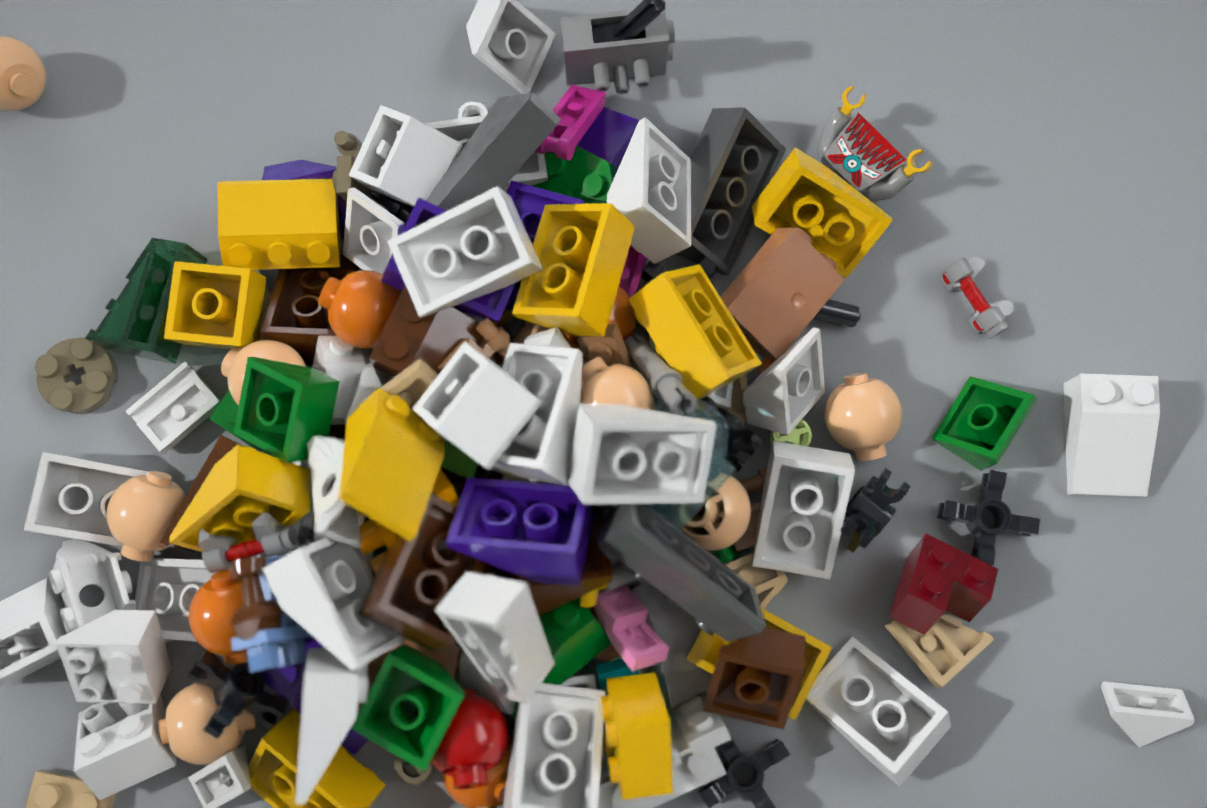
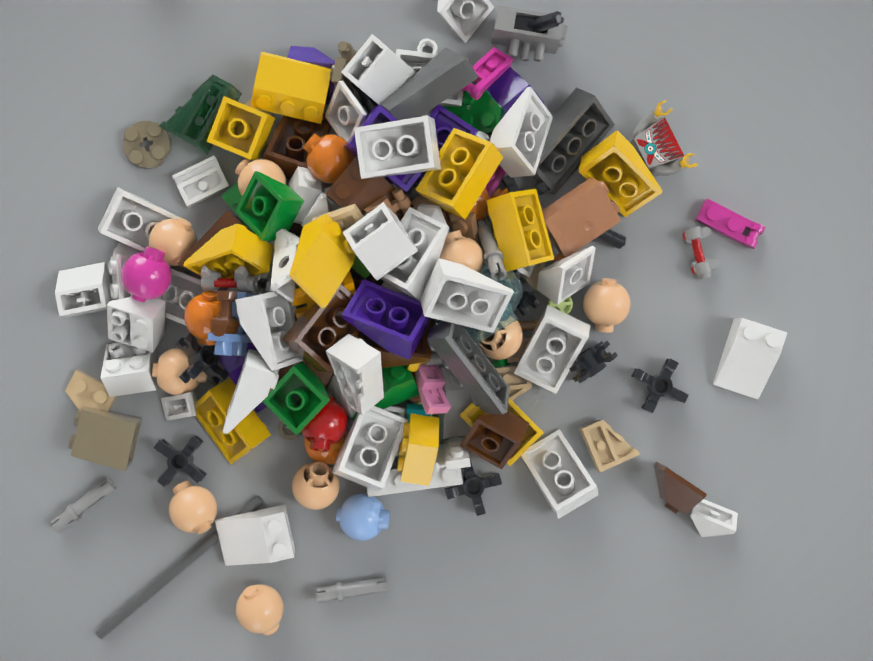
camera: 15 degrees right, 10 degrees up
(112, 575) = (146, 275): none -> dark pink brick
(938, 581) = (619, 412): dark red brick -> none
(983, 421) = (676, 328): green slope -> none
(1007, 243) = (729, 223): none -> dark pink plate
(1076, 680) = (677, 491): none -> reddish brown slope

